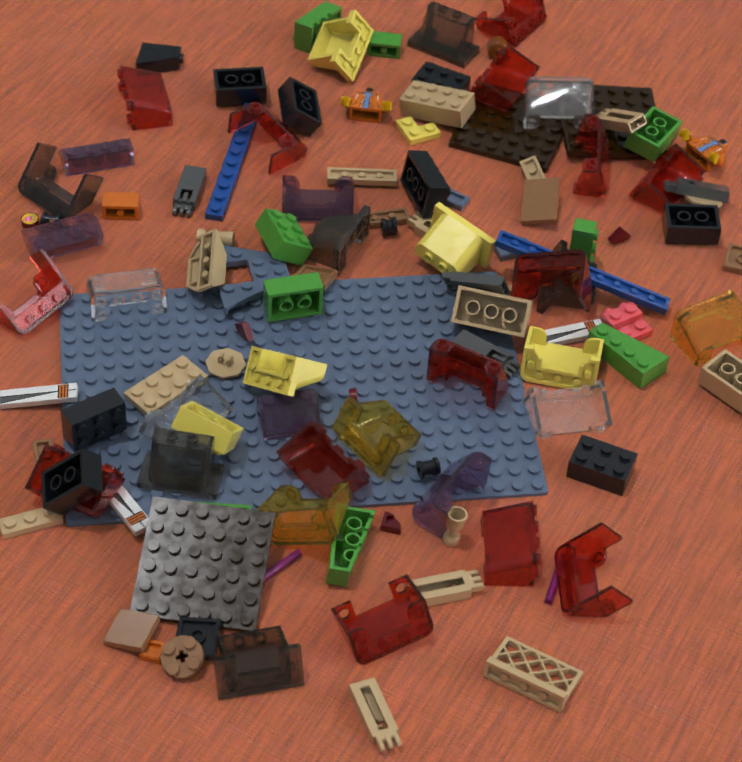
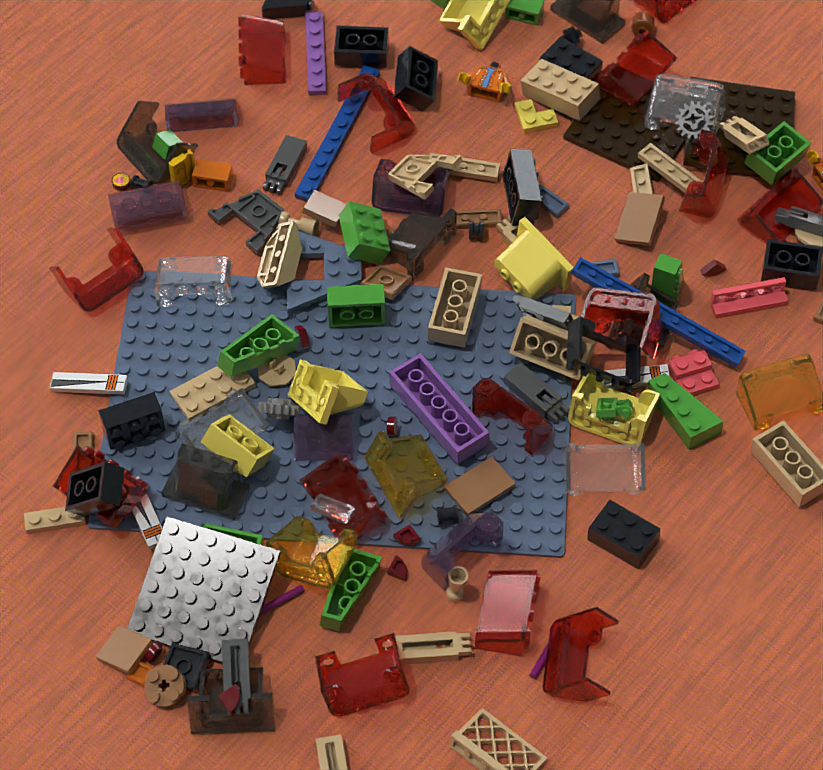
camera: 15 degrees right, 10 degrees up
(68, 183) = (164, 143): none -> bright green brick
(91, 198) = (182, 167): none -> yellow plate
(162, 628) = (153, 652): none -> dark red tile
(171, 232) = (257, 212): none -> dark grey wing
(195, 98) = (315, 53): none -> medium lavender plate
(206, 341) = (258, 346): none -> bright green wedge
(238, 221) = (324, 208): none -> tile
(239, 392) = (278, 408): none -> light grey gear
(256, 630) = (237, 670): none -> dark grey hinge
(256, 655) = (230, 698): none -> dark red tile
(315, 475) = (332, 508): none -> clear plate
(319, 181) = (416, 168): none -> tan wing
(388, 289) = (455, 307): none -> tan brick
(393, 492) = (407, 536): none -> dark red tile
(396, 376) = (439, 408): none -> medium lavender brick
(436, 59) = (572, 35): none -> black gear
(452, 440) = (479, 486): none -> medium nougat tile
(519, 291) = (626, 344): none -> black hinge
(554, 156) = (667, 167): none -> tan plate
(560, 357) = (610, 407): none -> bright green plate
(565, 114) = (692, 114): none -> light grey gear
(659, 259) = (749, 299): none -> coral fence

